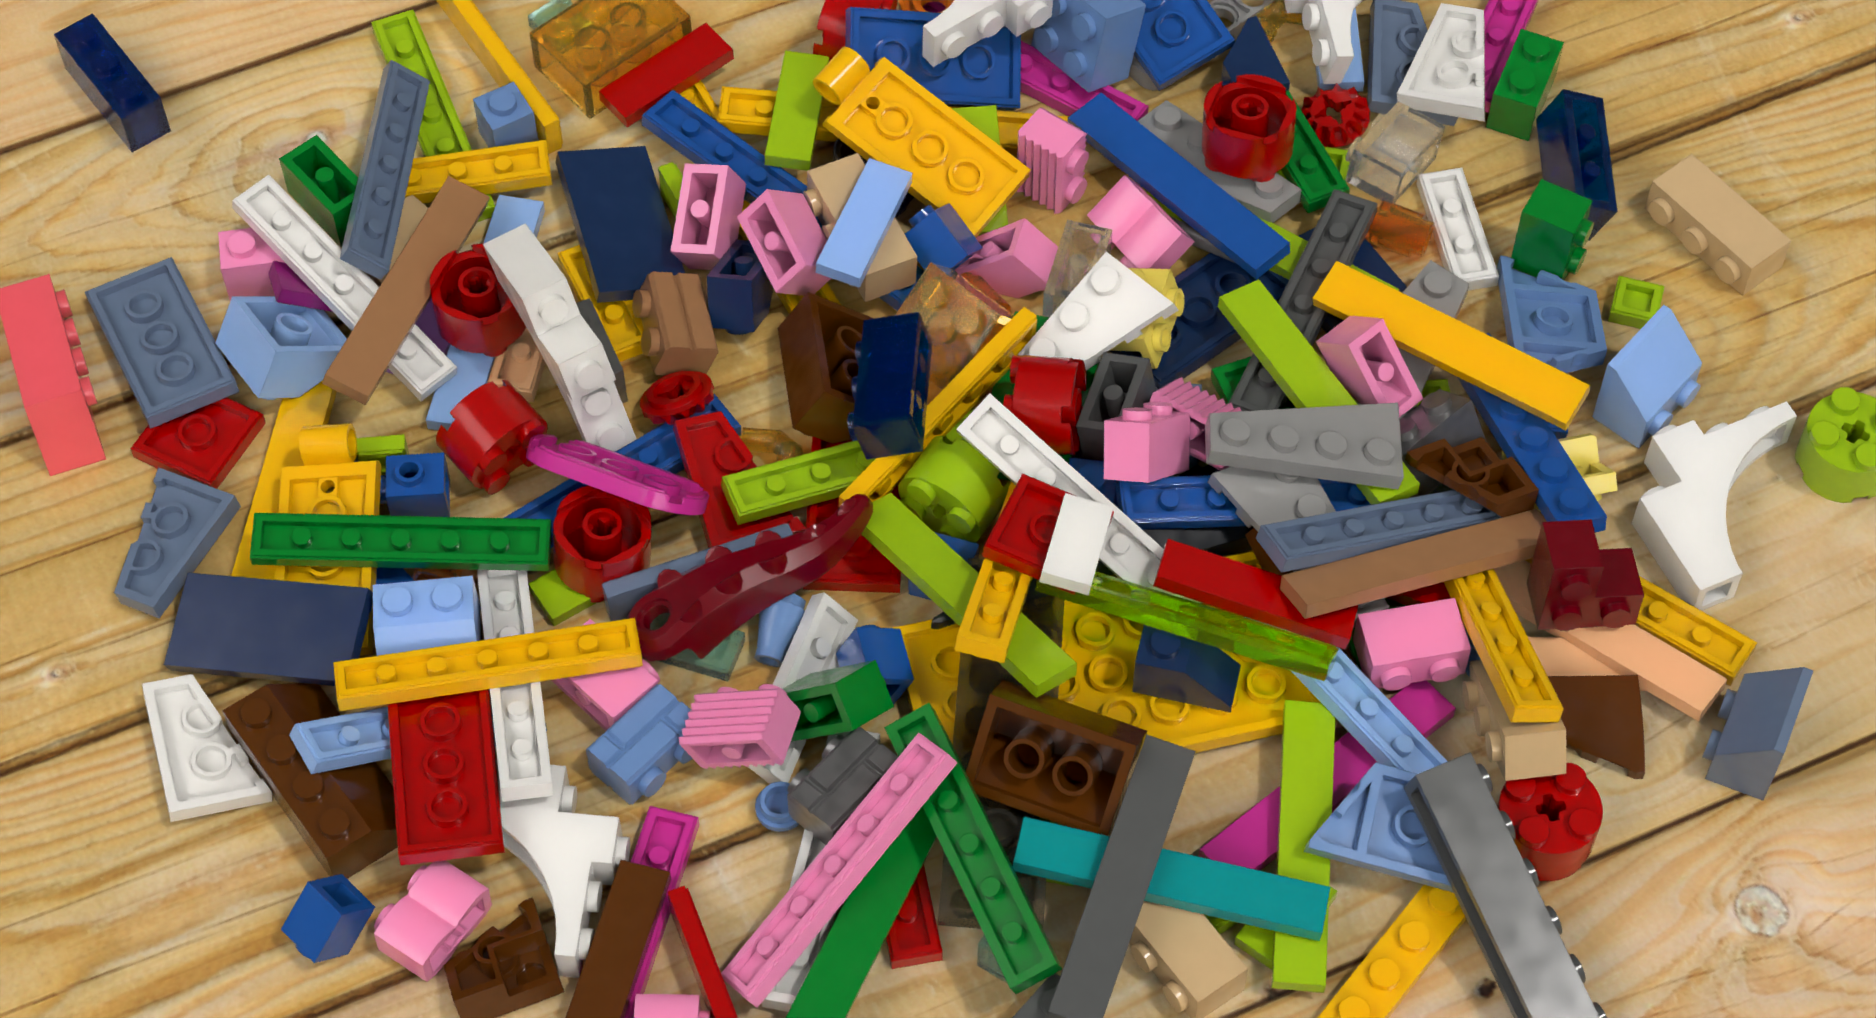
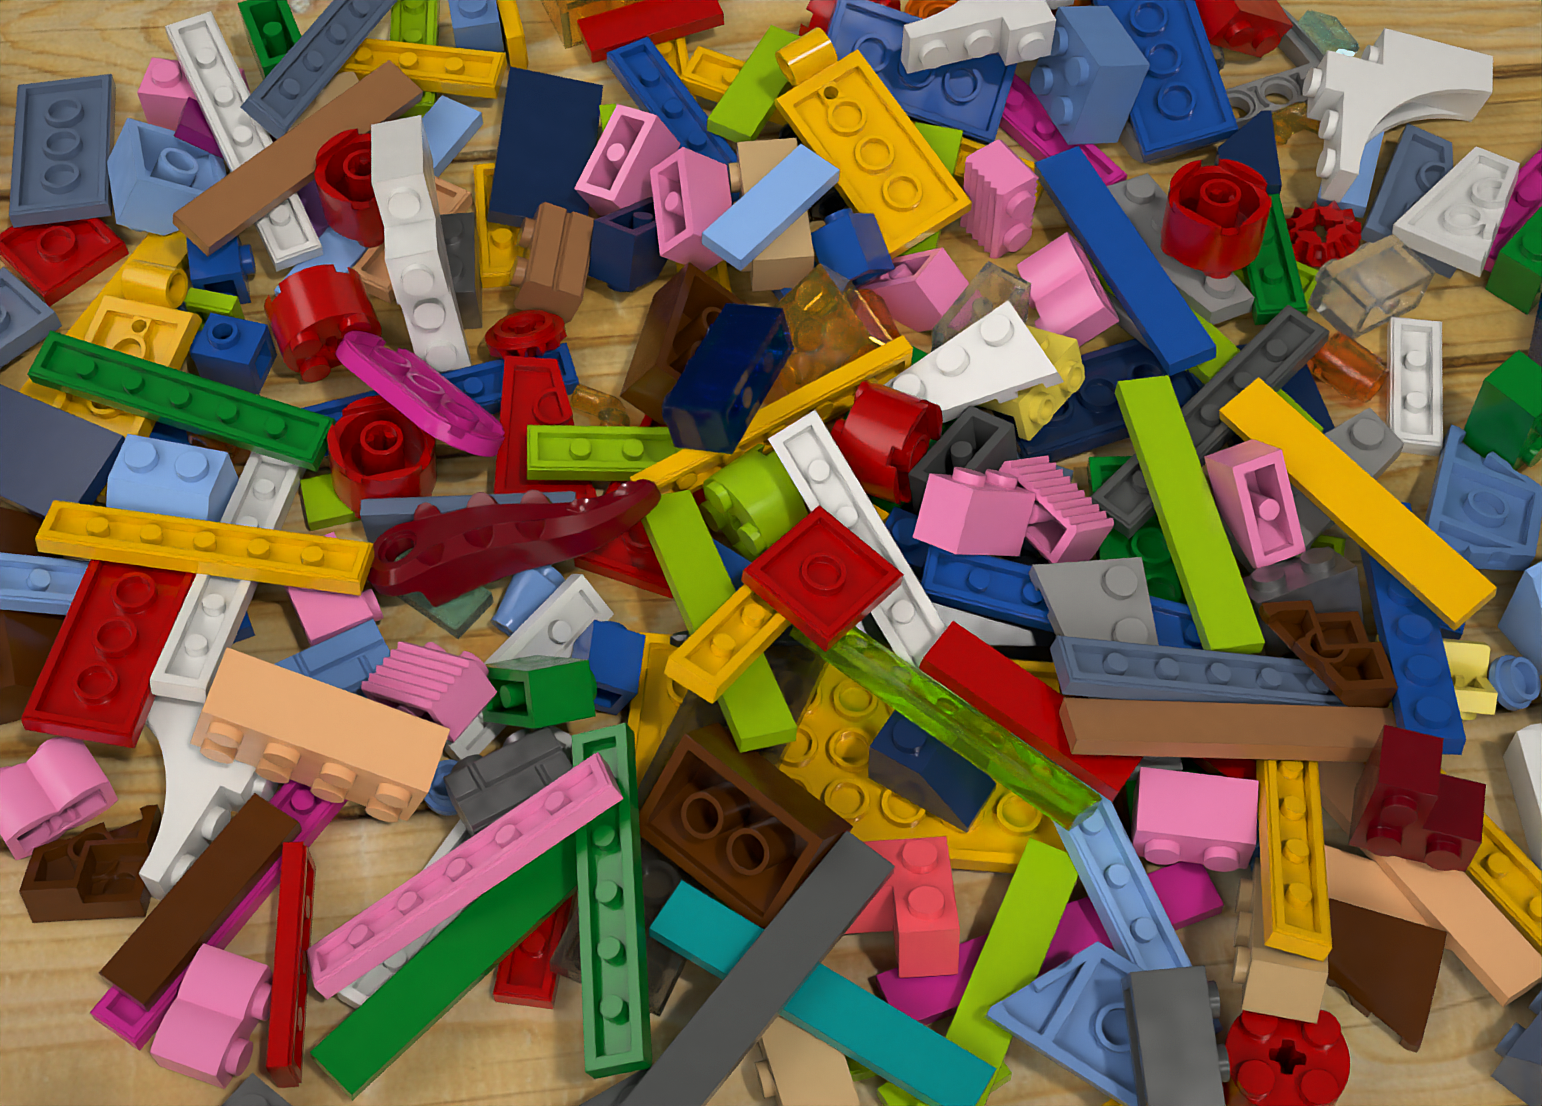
camera: 20 degrees right, 0 degrees up
(370, 420) = (224, 270): none -> blue brick
(668, 792) = (318, 737): none -> light nougat brick
(1076, 544) = (842, 597): white tile -> none
(1220, 783) = (916, 906): none -> coral brick
(1314, 442) = (1163, 564): light grey wing -> none
(1623, 457) = (1514, 681): none -> medium blue plate

